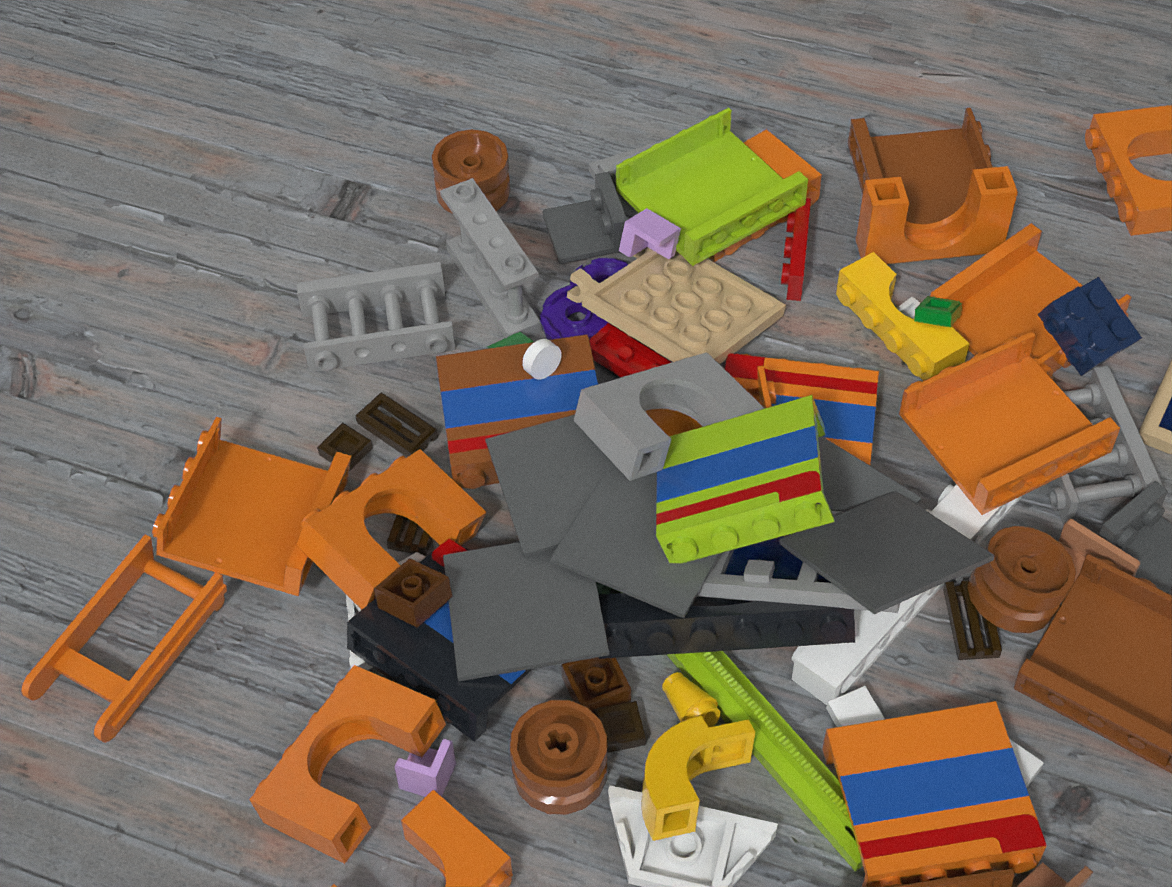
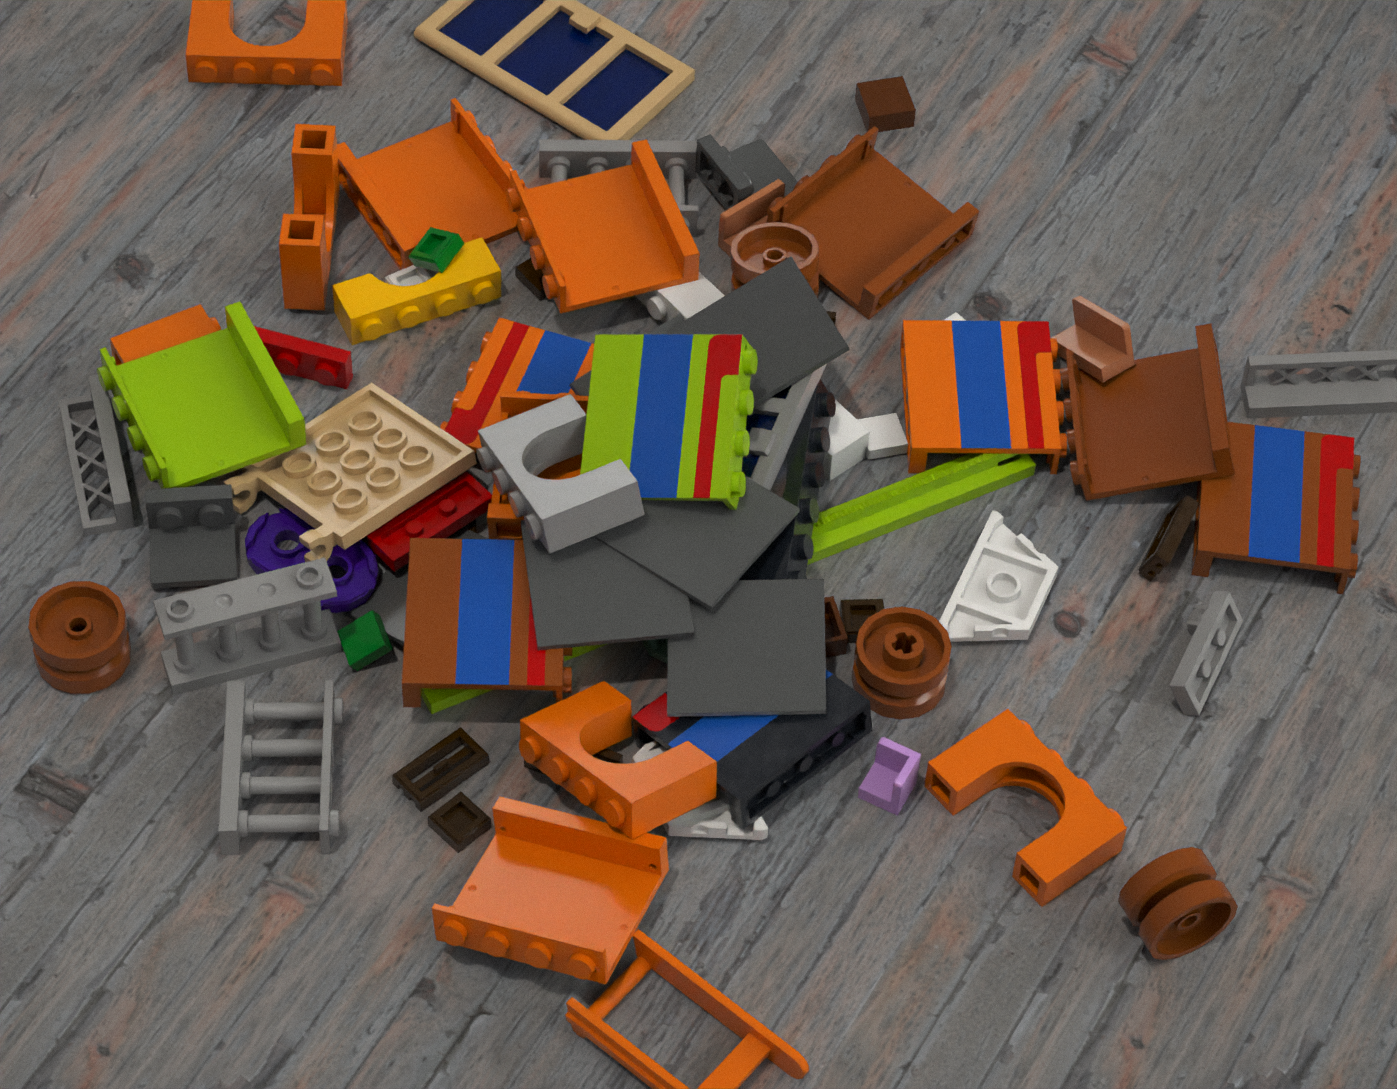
camera: 85 degrees left, 0 degrees up
(357, 710) = (905, 889): orange arch -> none
(413, 592) = (722, 732): reddish brown piece -> none
(541, 359) = (449, 574): white tile -> none
(649, 231) = (258, 463): lavender panel -> none
(676, 758) = (938, 574): yellow arch -> none
(690, 700) = (852, 556): yellow cone -> none
(931, 164) = (208, 223): dark orange panel -> none
(1089, 326) = (494, 136): dark blue plate -> none

